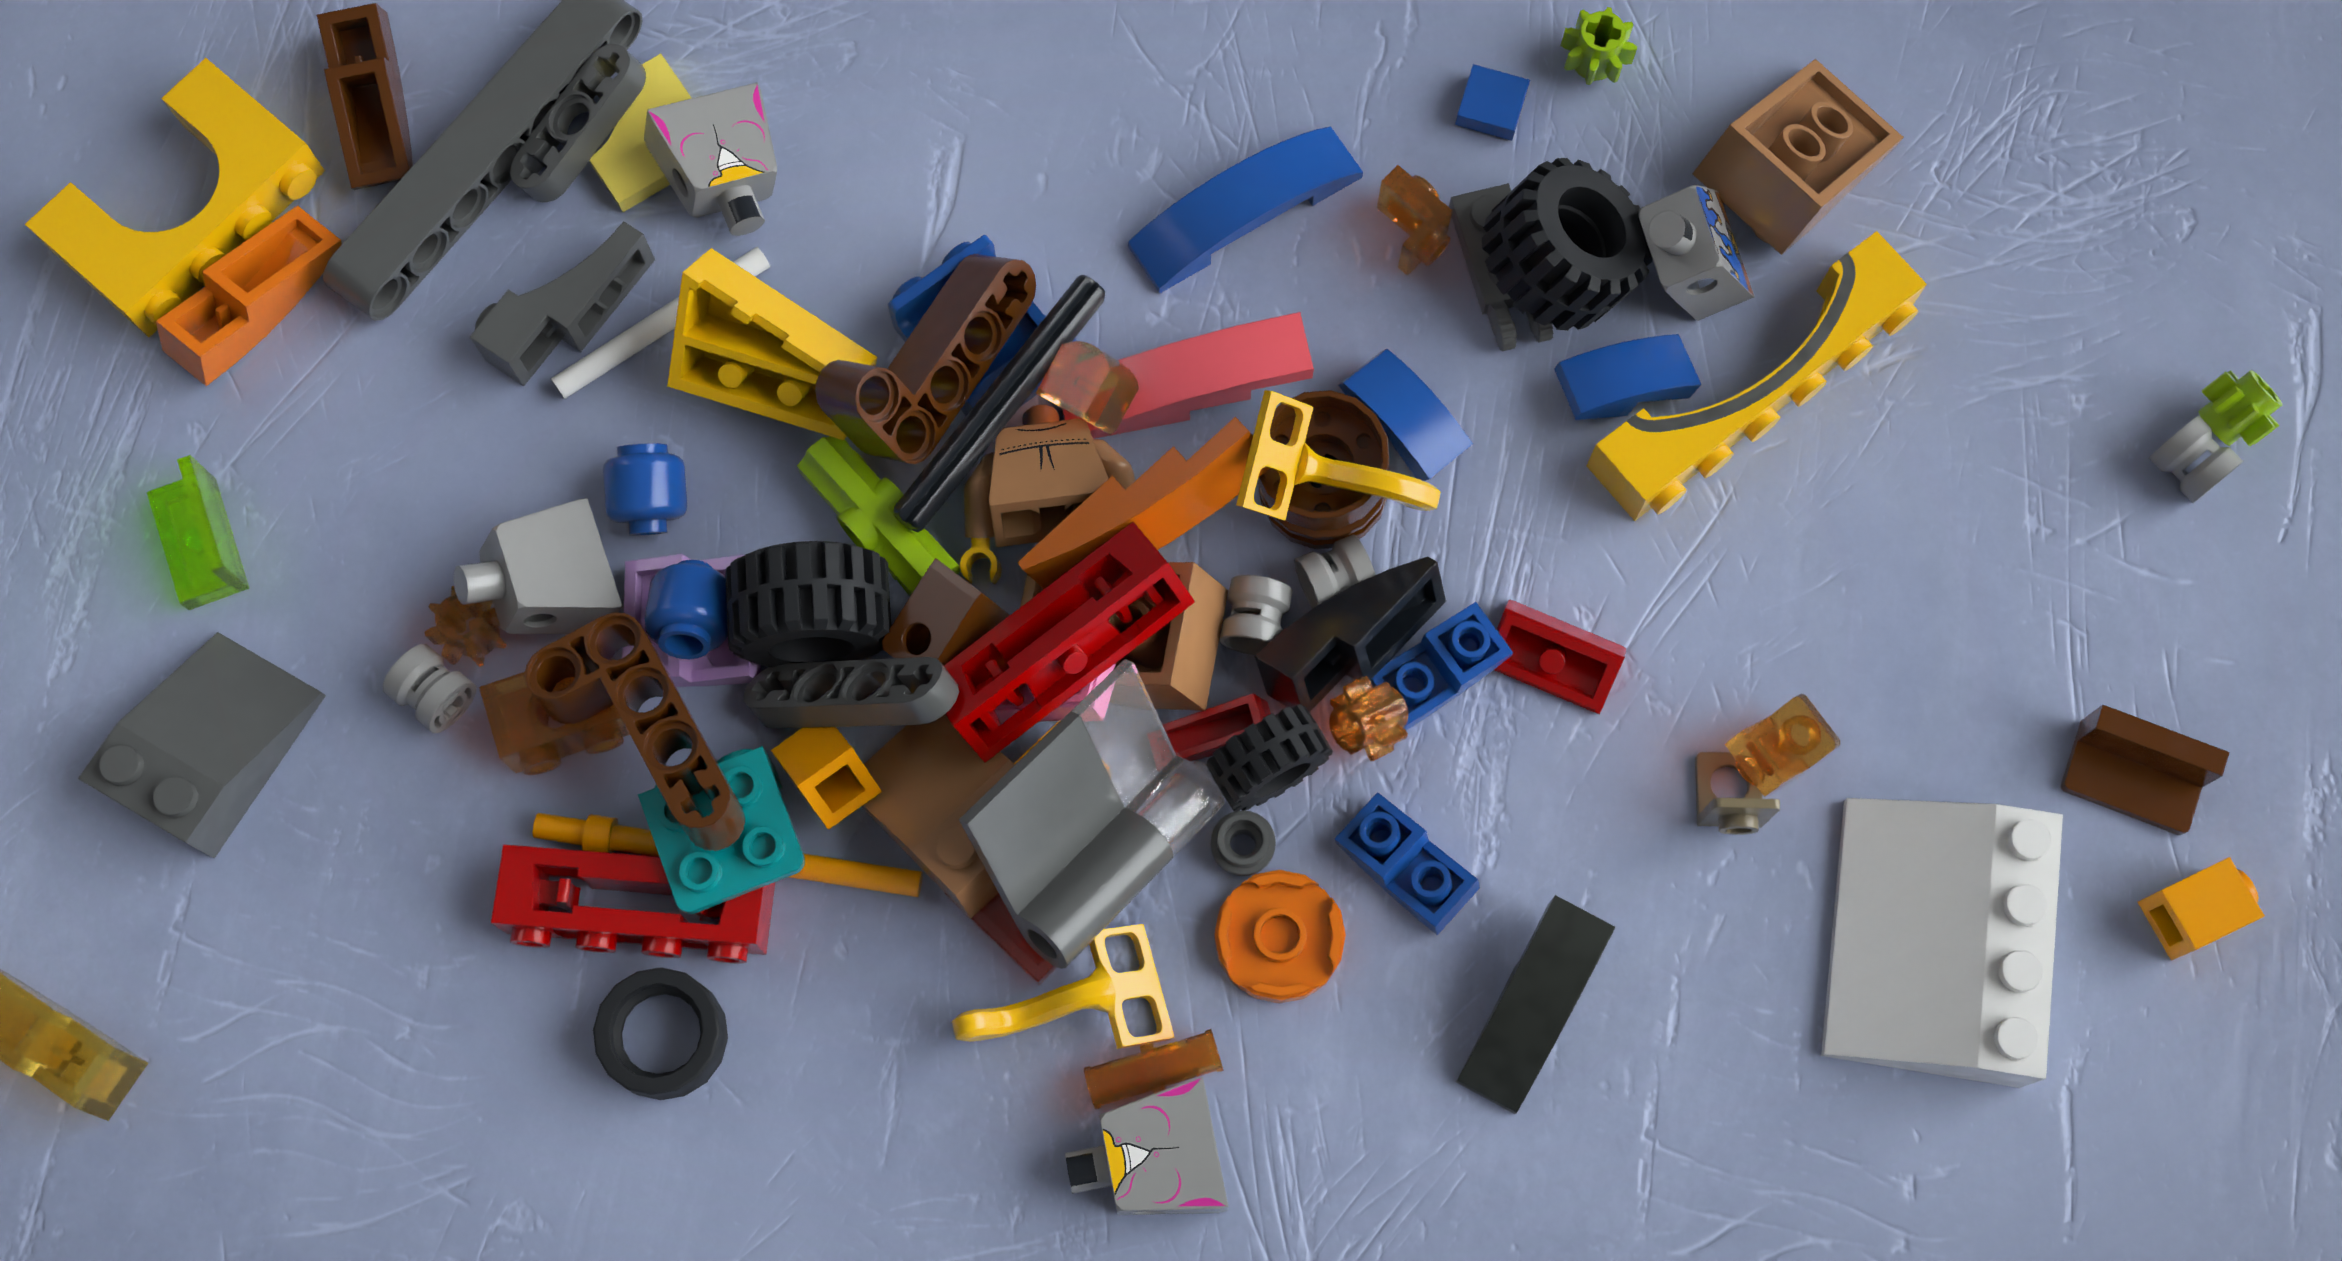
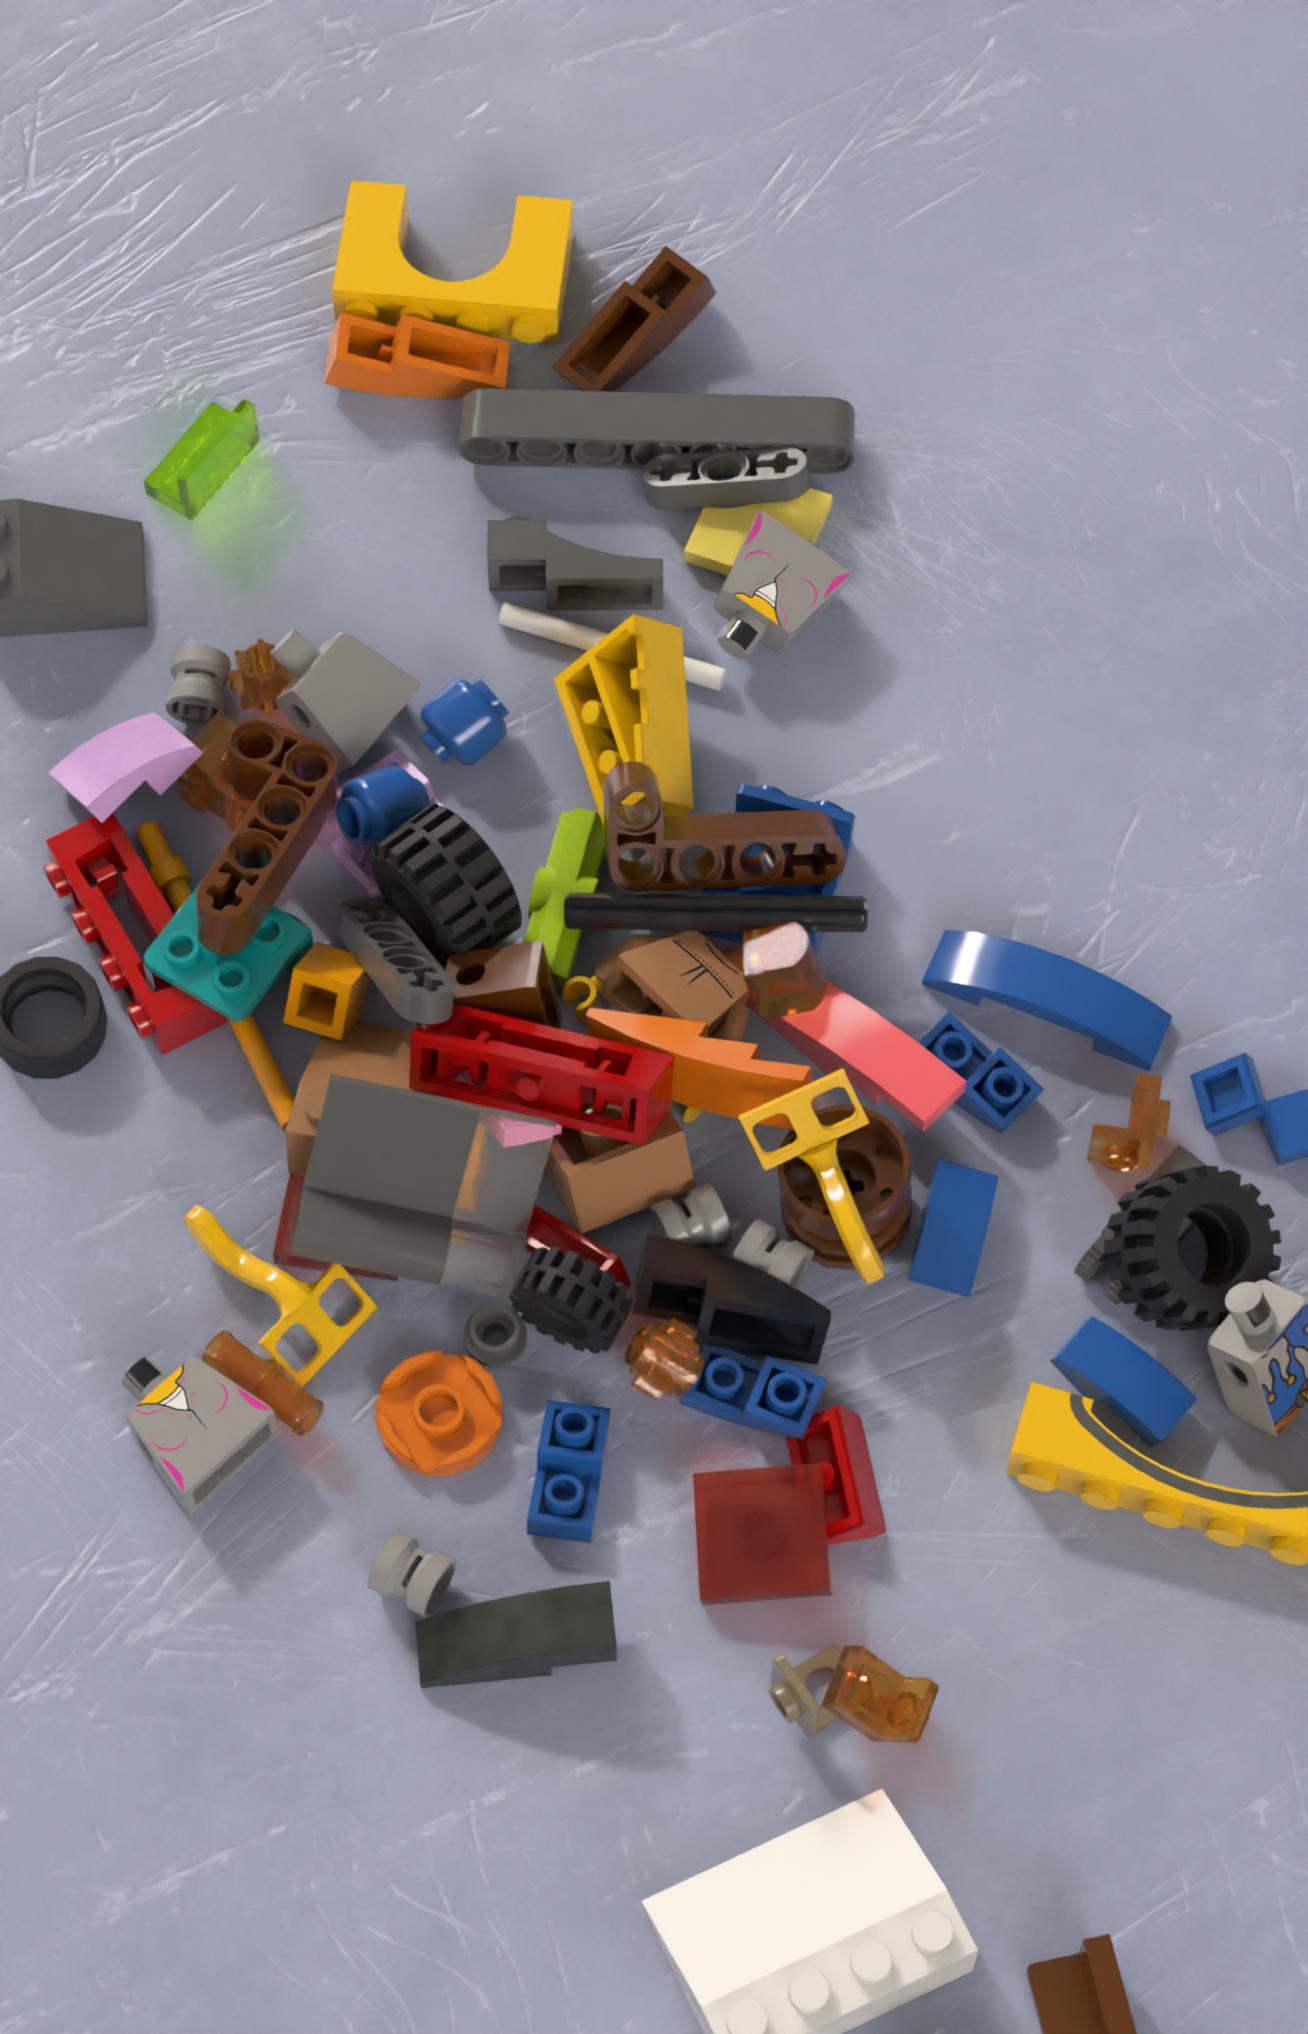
camera: 55 degrees right, 10 degrees down
(463, 804) = (121, 759): none -> lavender slope
(1287, 291) = (995, 1083): none -> blue slope
(1420, 1061) = (411, 1573): none -> light grey wheel
(1433, 130) = (1229, 1094): none -> blue tile
(1572, 744) = (762, 1534): none -> clear red plate

